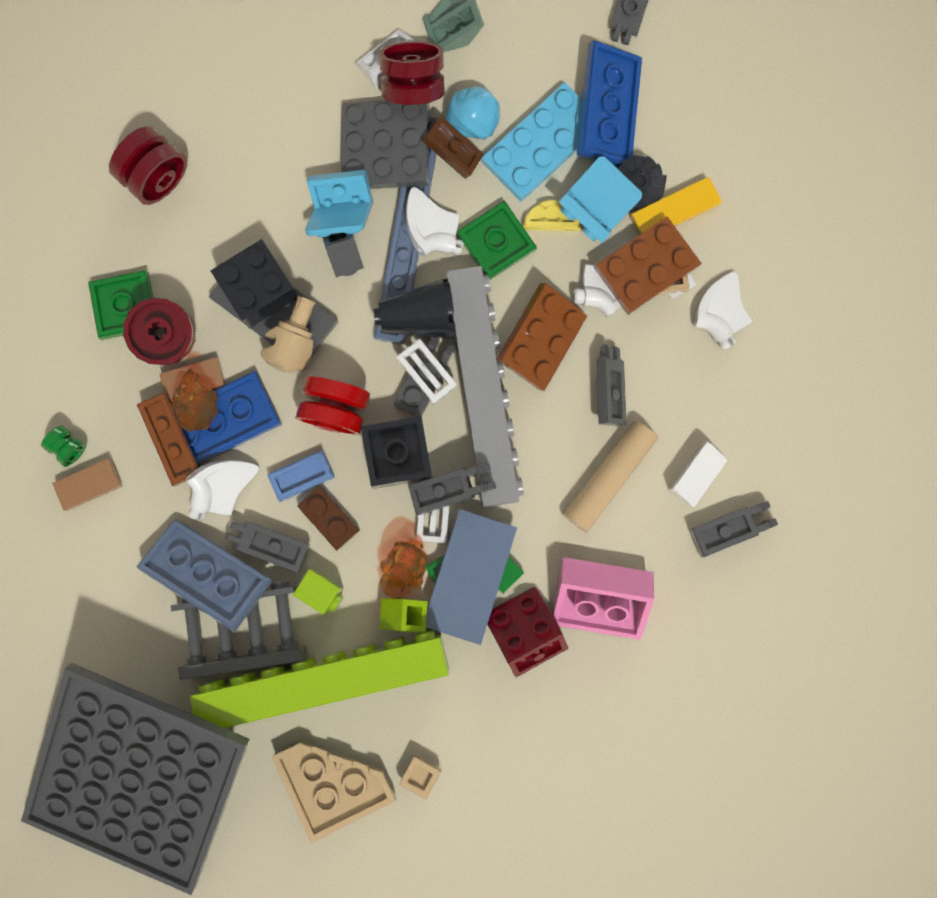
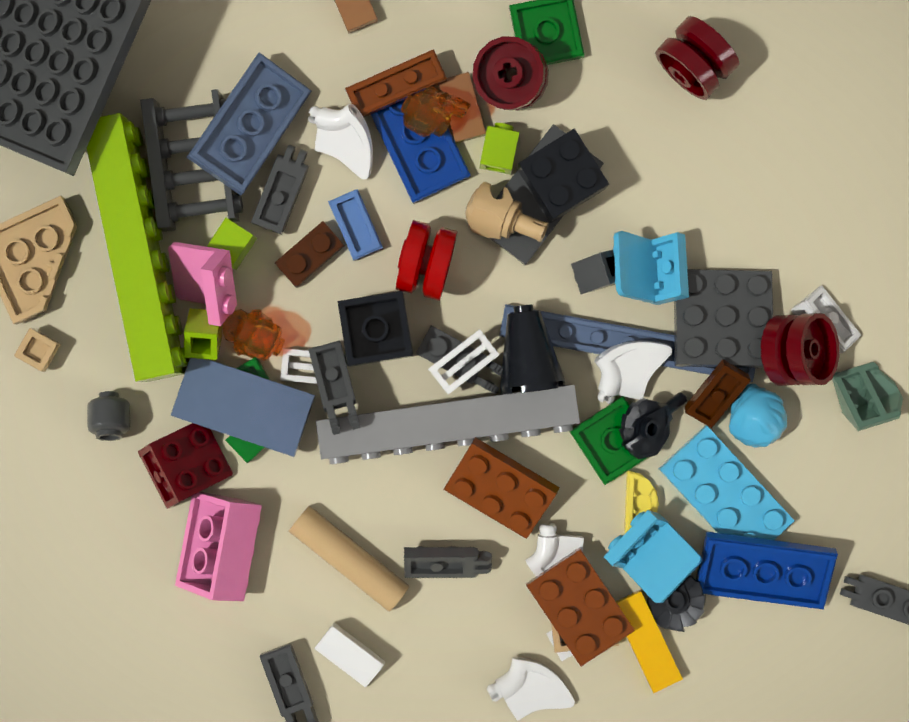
camera: 90 degrees right, 5 degrees up
(230, 343) = (499, 148): none -> lime brick
(349, 614) = (204, 277): none -> bright pink bracket
(482, 207) = (648, 425): none -> black piece
(482, 705) = (108, 416): none -> dark grey head

